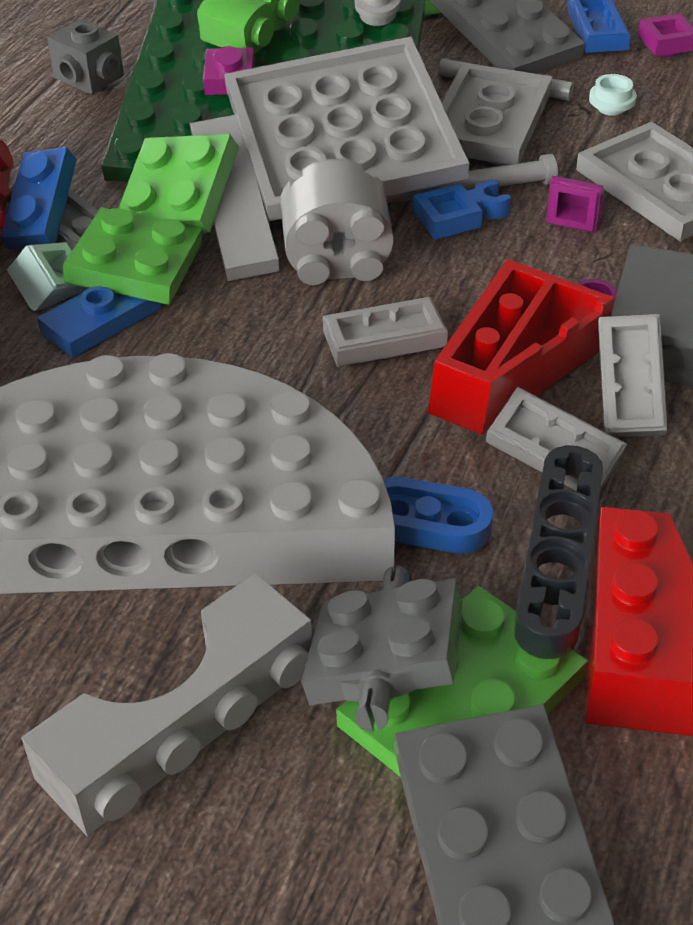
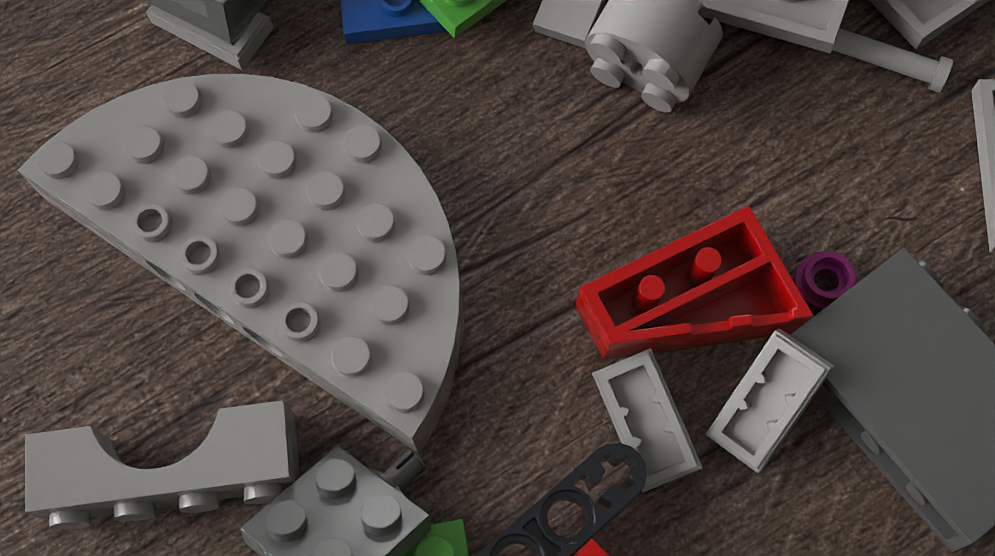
camera: 40 degrees right, 25 degrees up
(384, 331) = (610, 190): light grey plate -> none
(439, 515) = (484, 420): blue plate -> none
(455, 210) = (795, 76): blue plate -> none
(575, 204) = (918, 145): magenta slope -> none

